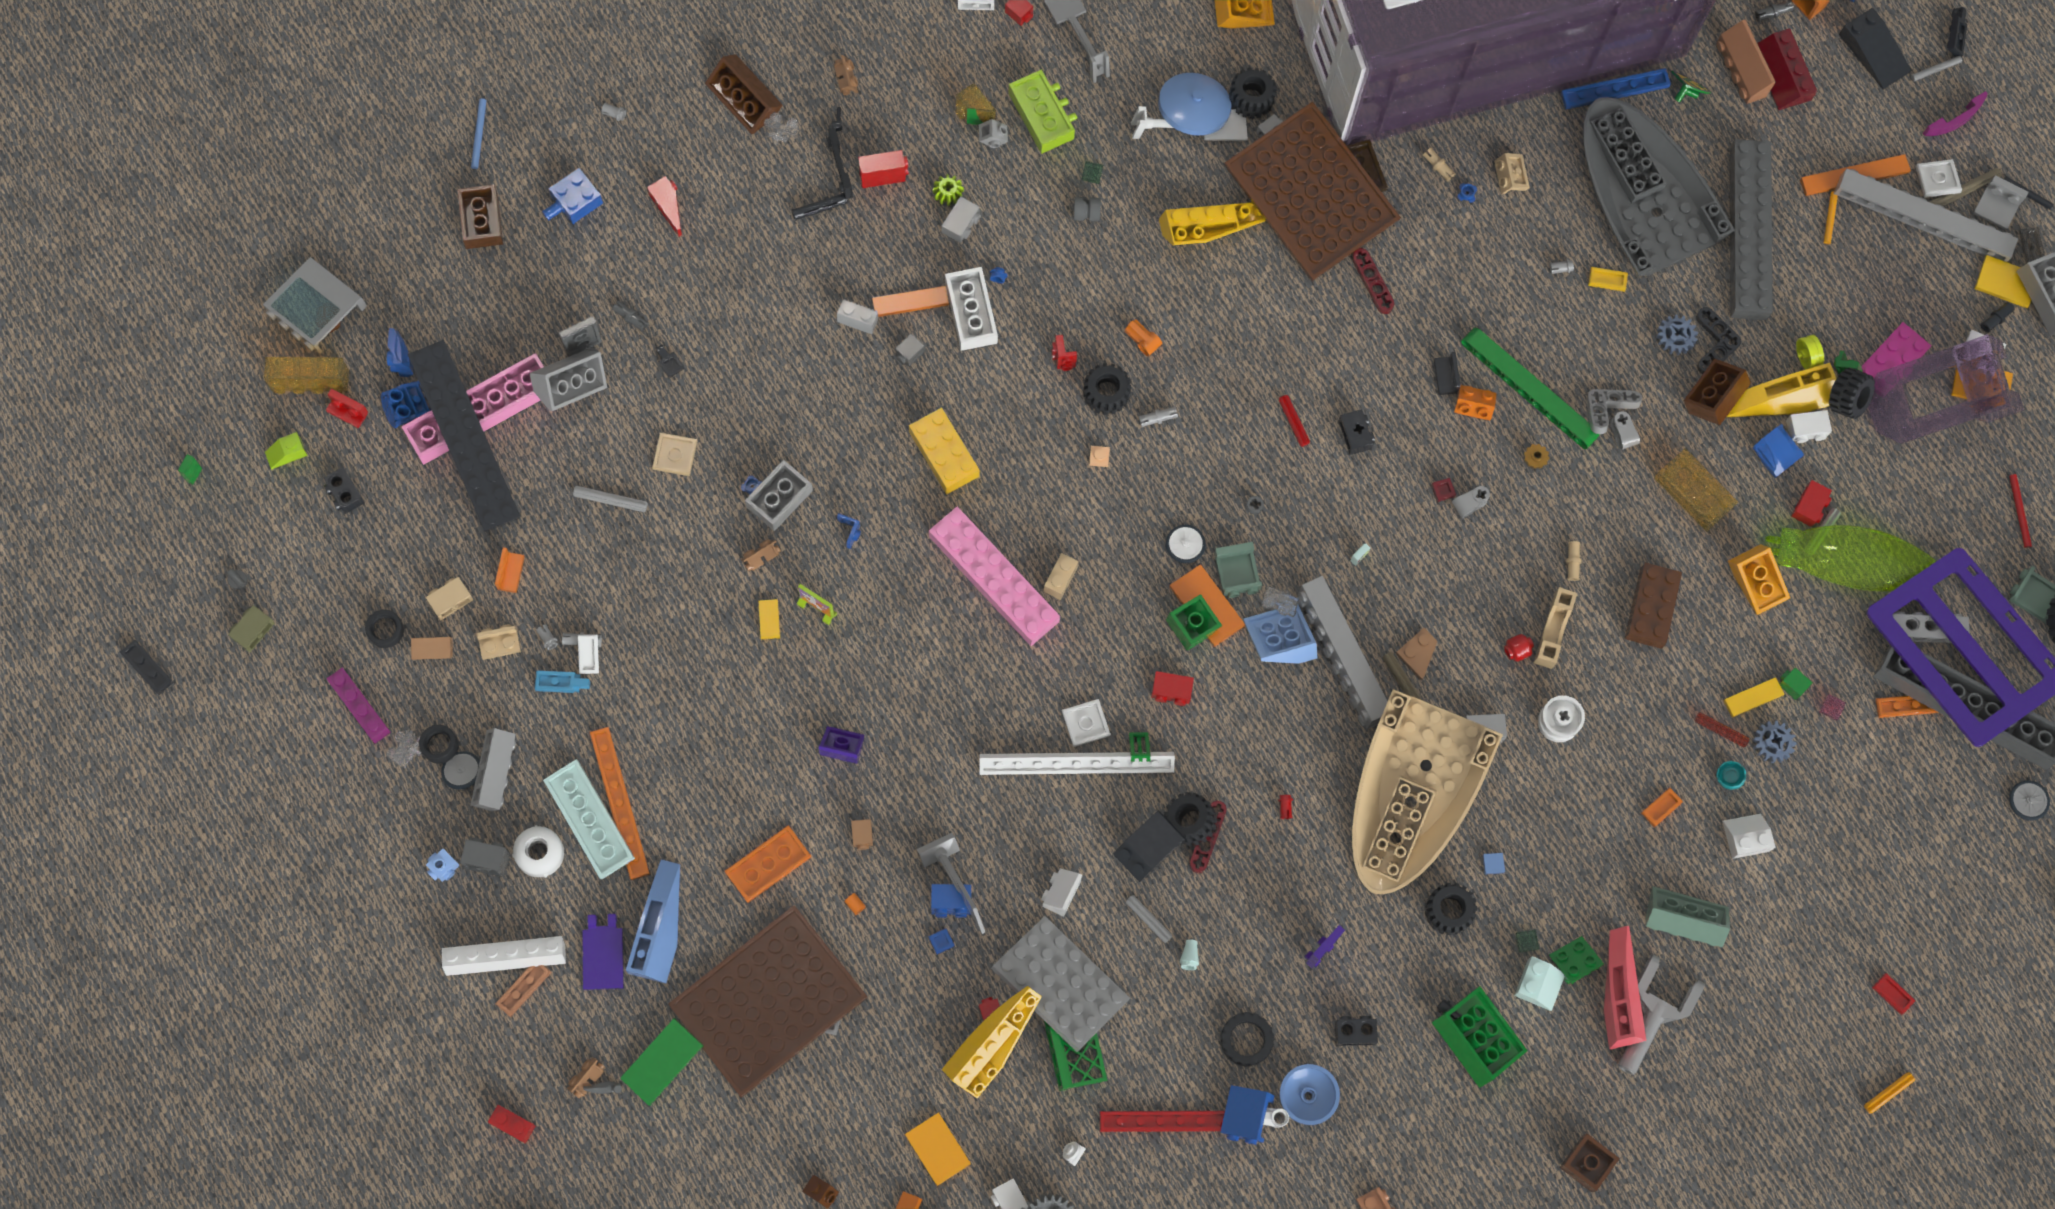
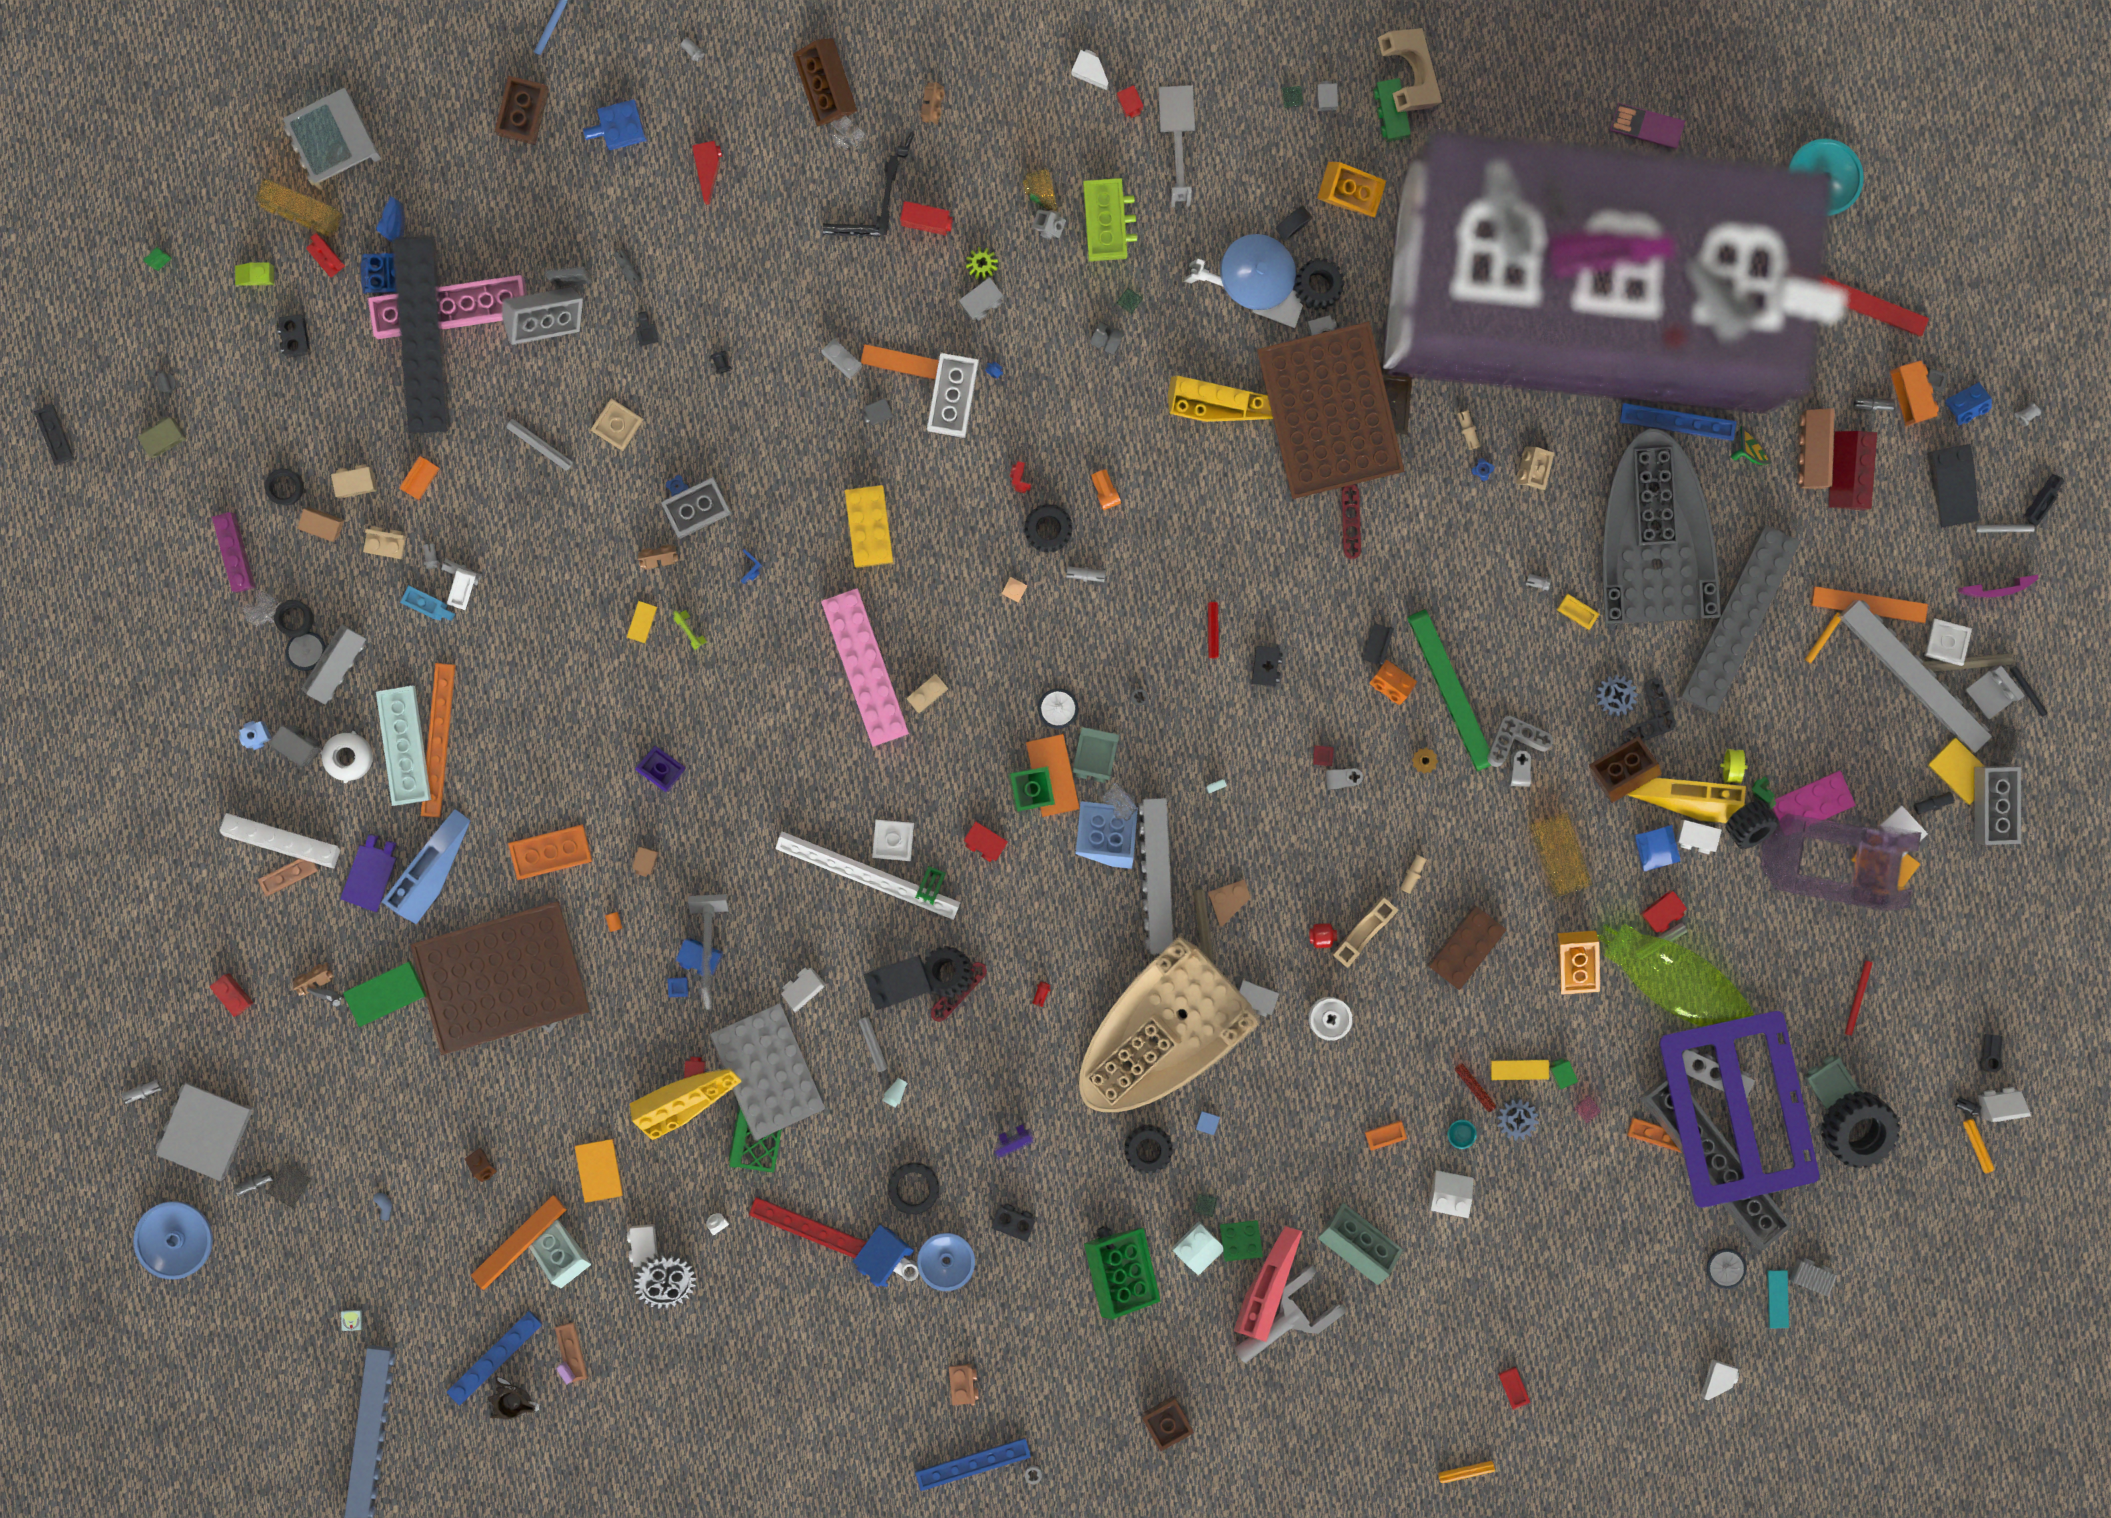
camera: 25 degrees right, 15 degrees up
(748, 362) = (721, 362): none -> black bush
(1207, 51) = (1293, 222): none -> black tyre

